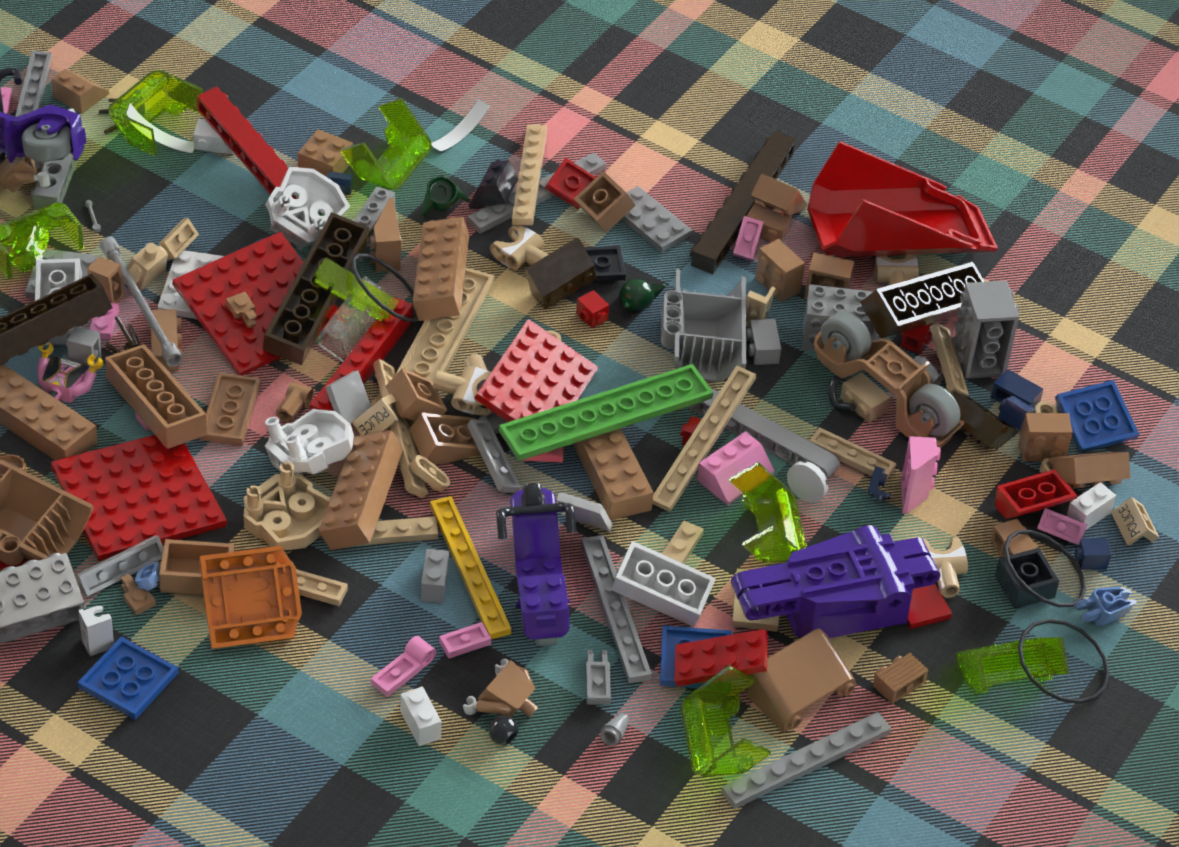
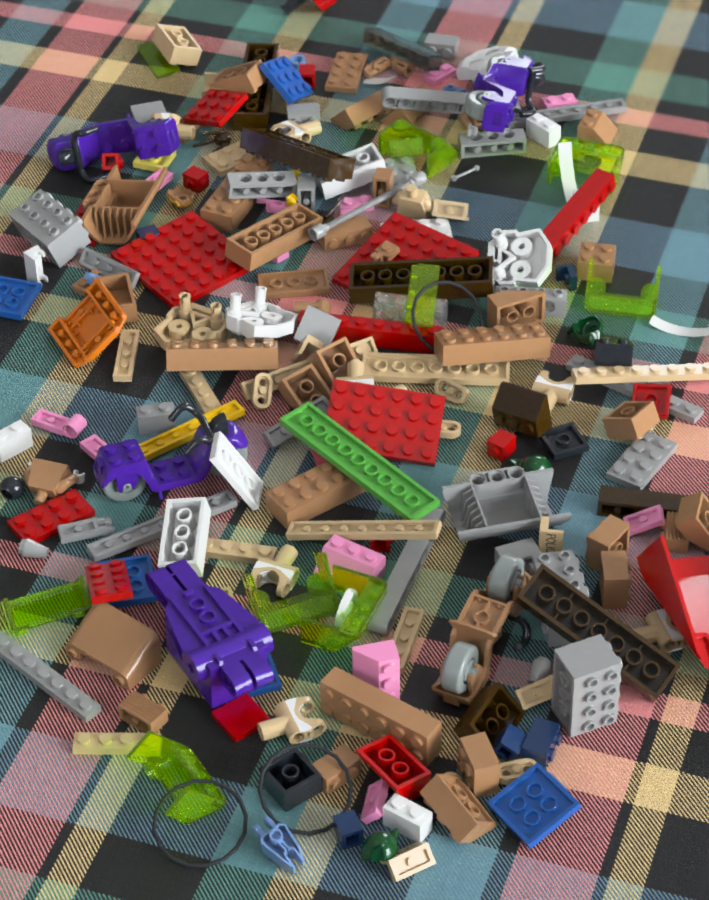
camera: 80 degrees right, 5 degrees down
(58, 379) = (260, 184): none -> light grey brick
(488, 325) = (452, 392): none -> tan plate
(563, 707) = (43, 519): none -> red plate
(722, 528) = (278, 571): none -> tan connector
(842, 476) = (370, 592): none -> clear neon green windscreen
(930, 711) = (105, 743): none -> tan plate
(963, 491) = (380, 714): none -> medium nougat brick
(1126, 533) = (380, 846): none -> dark green piece

